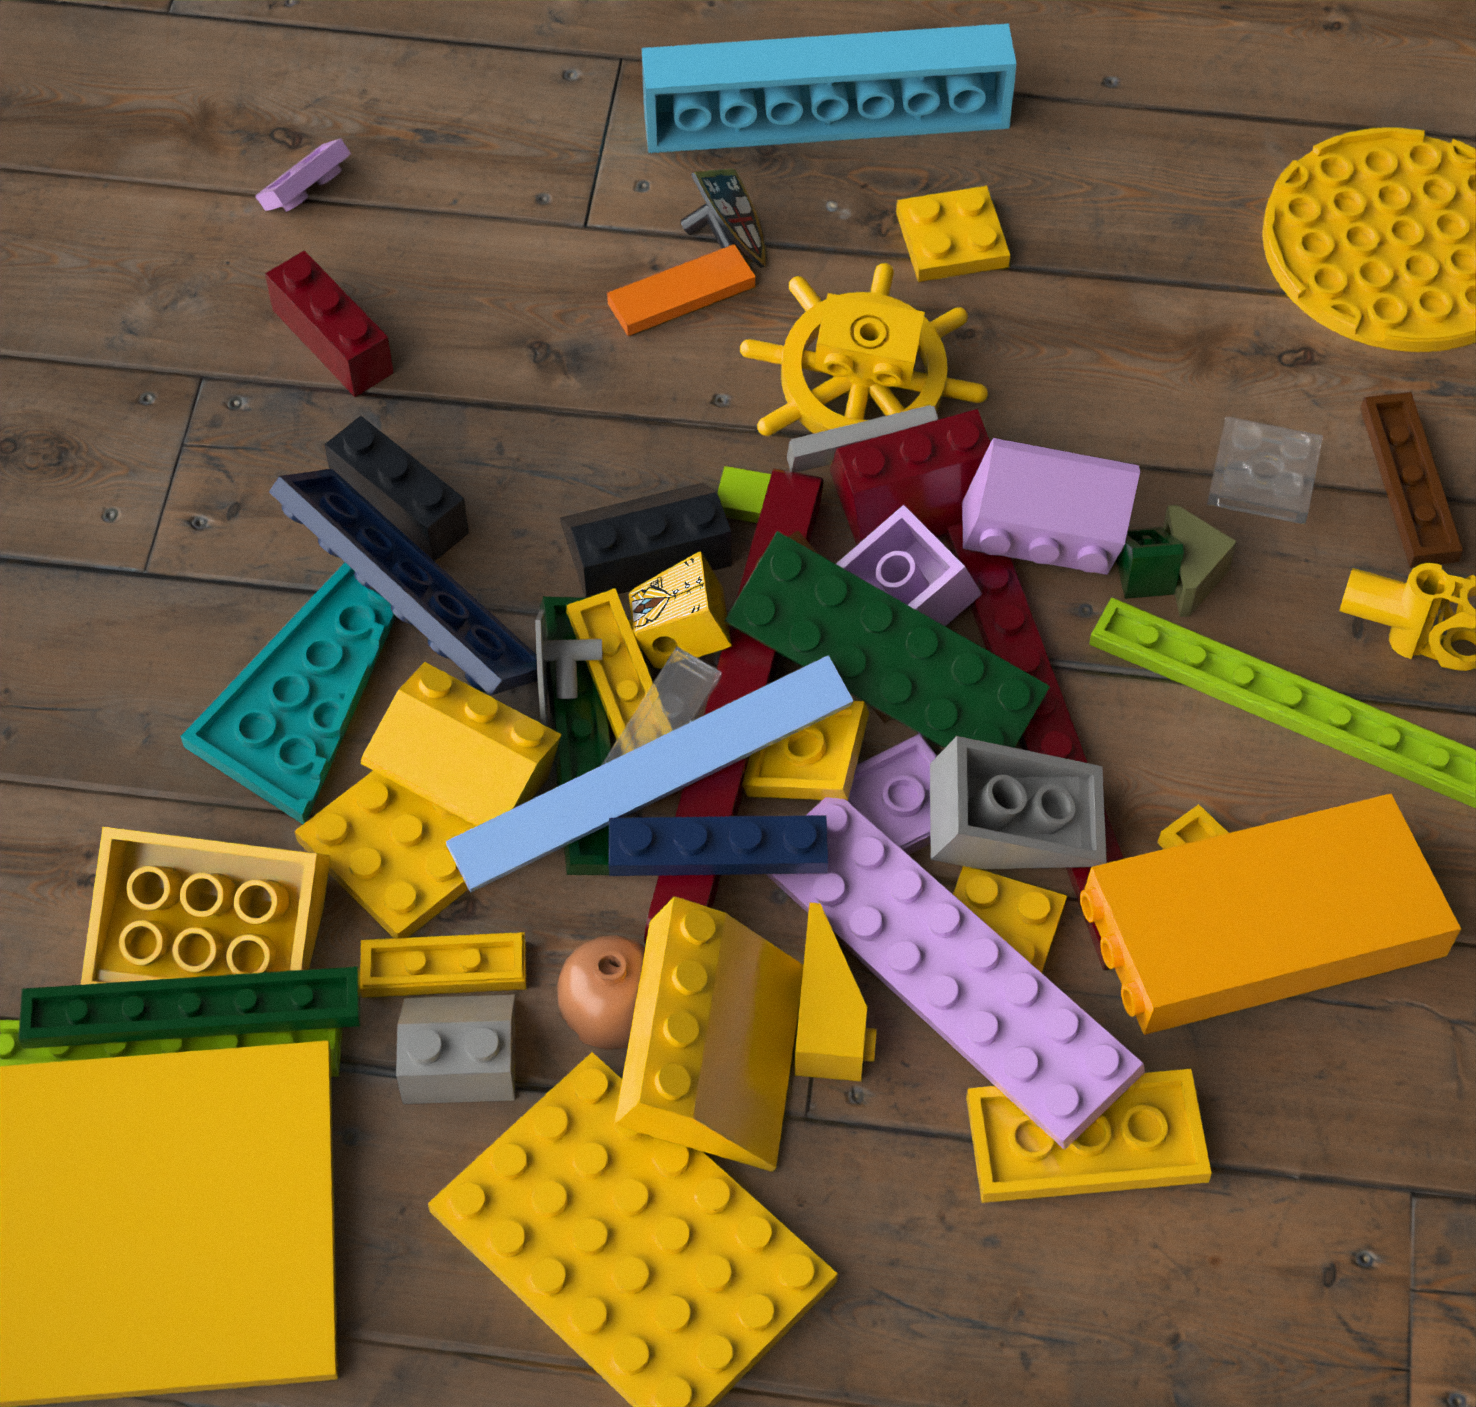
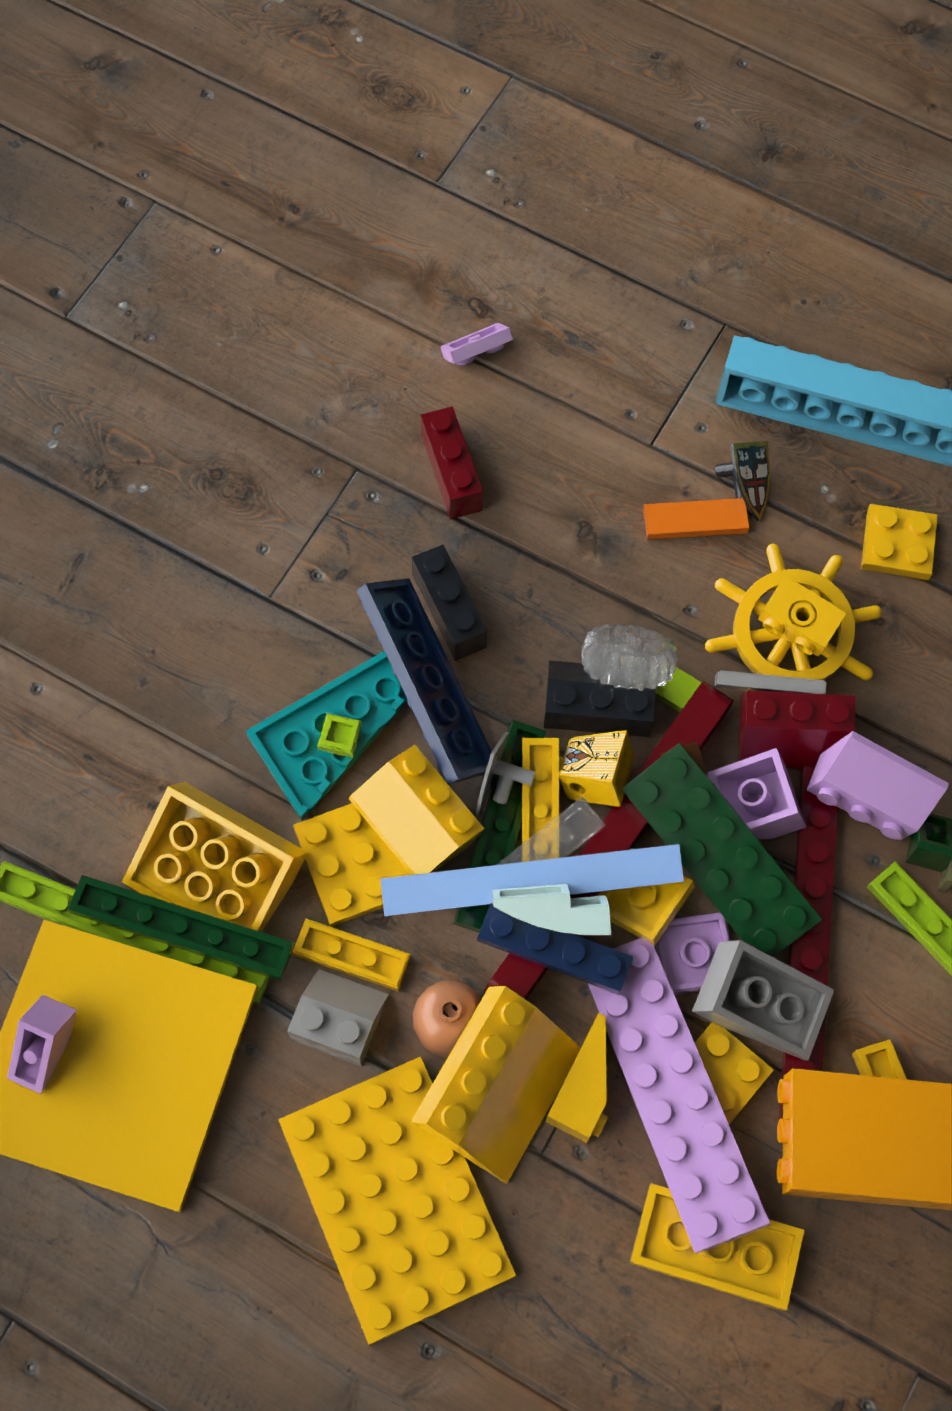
camera: 20 degrees right, 10 degrees up
(49, 1222) = (40, 1043): none -> lavender slope
(315, 694) = (339, 735): none -> lime tile
(665, 467) = (629, 656): none -> clear gear
(701, 789) = (554, 909): none -> light aqua slope

